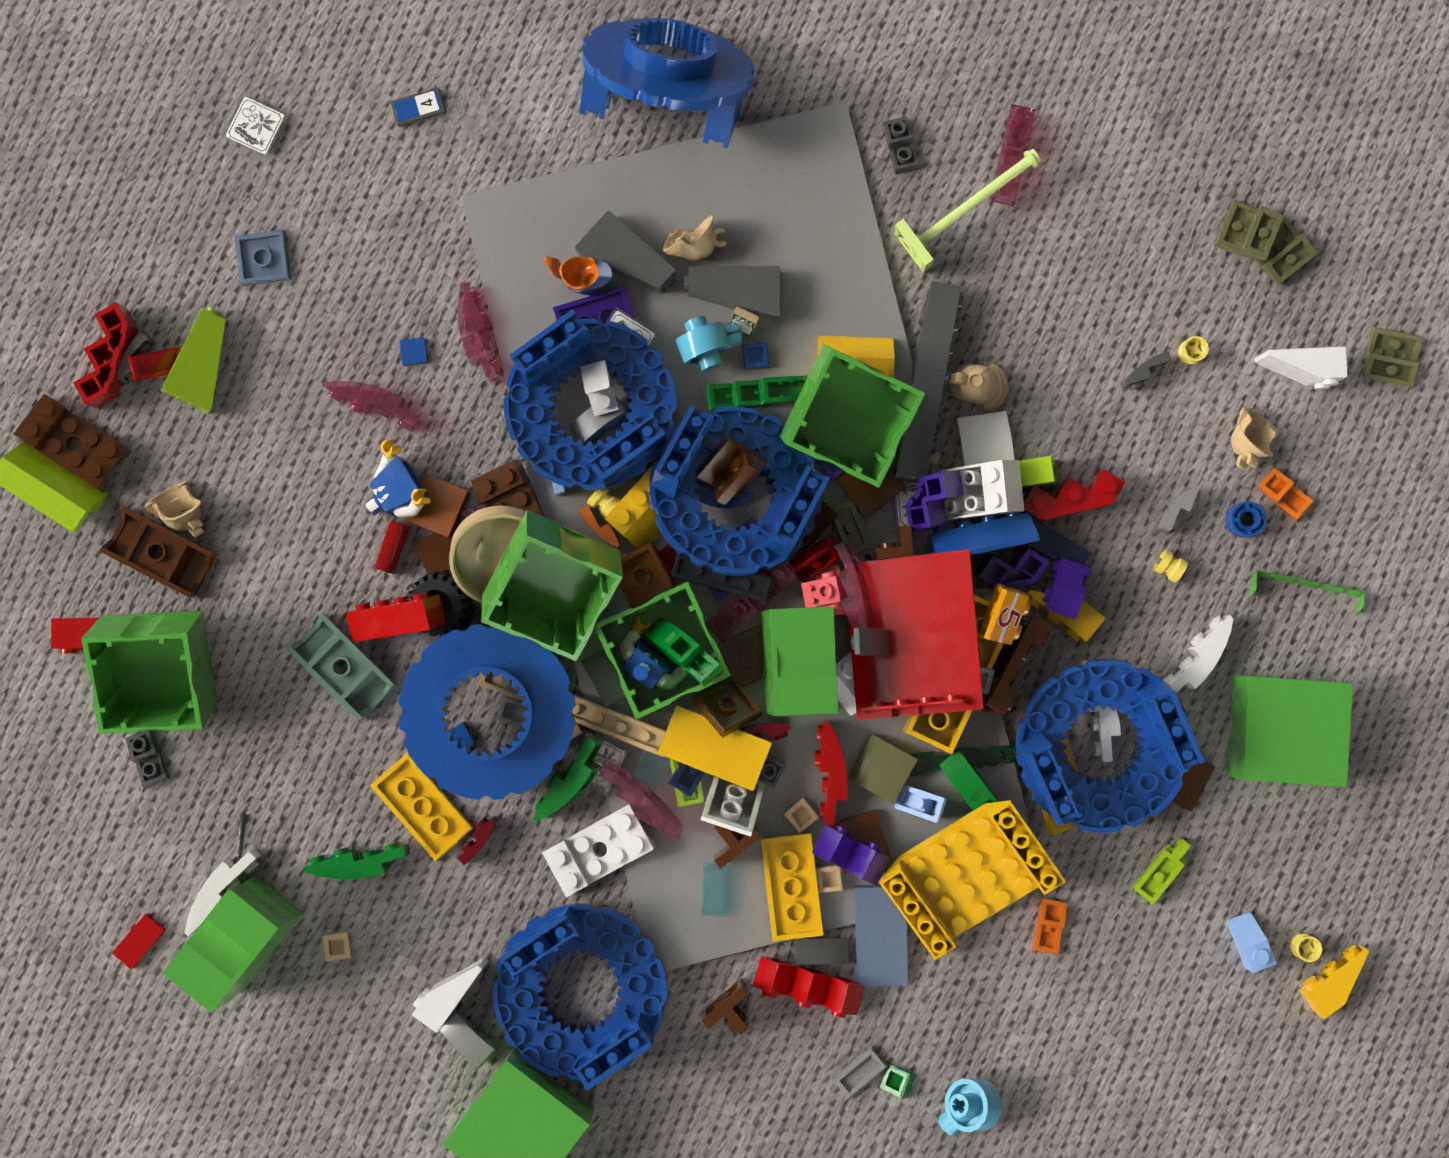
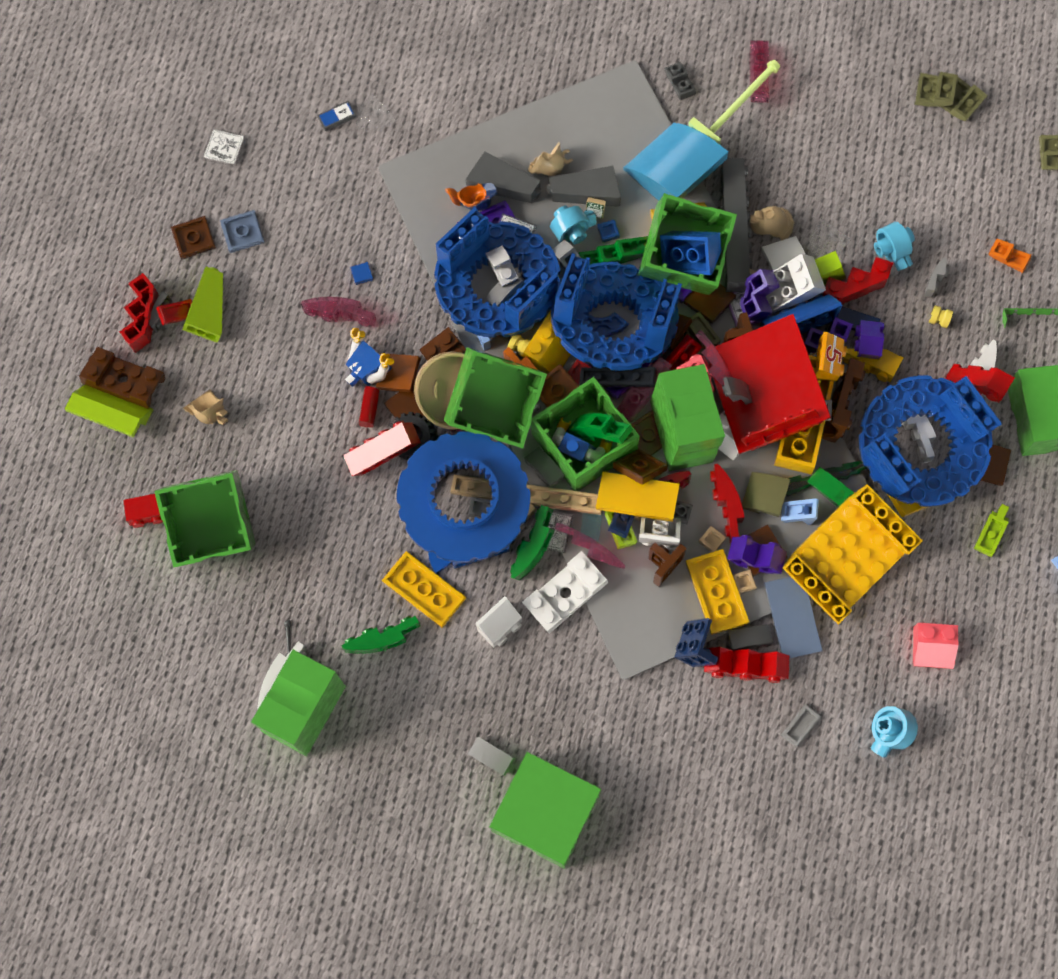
camera: 10 degrees left, 15 degrees down
(138, 941) = (221, 730): red tile -> none
(147, 757) = (208, 592): dark grey slope -> none
(182, 562) = (214, 448): reddish brown piece -> none
(195, 254) = (193, 237): none -> reddish brown tile
(337, 946) = (376, 705): tan tile -> none
(362, 684) = (361, 509): sand green piece -> none
(438, 1003) = (469, 720): white slope -> none
(471, 325) = (403, 252): clear pink slope -> none
(482, 834) = (473, 597): dark red slope -> none
(507, 875) = (499, 622): none -> white slope
(560, 1048) = (568, 652): blue piece -> none
(690, 386) = (563, 253): none -> light grey brick
(713, 81) = (508, 44): blue piece -> none
(714, 890) = (659, 605): clear light blue tile -> none
(727, 1006) = (687, 688): reddish brown bracket -> none
(730, 469) = (608, 299): reddish brown bracket -> none
(747, 949) = (691, 644): none -> dark blue bracket
(852, 428) = (691, 251): none -> blue slope
(866, 276) = (676, 161): none -> dark azure slope
(898, 1081) = (832, 726): green slope -> none
(1049, 926) = (919, 588): orange slope -> none
(1050, 1005) = (935, 645): none -> coral slope
(1135, 454) = (895, 244): none -> medium azure piece
(1141, 373) = (891, 187): dark grey slope -> none
(1192, 678) = (991, 383): none -> red brick
(1197, 348) = (918, 172): light yellow wheel -> none
(1252, 438) = (975, 220): tan helmet -> none
(1257, 519) = (990, 269): blue wheel -> none
(1308, 365) = (999, 165): white slope -> none

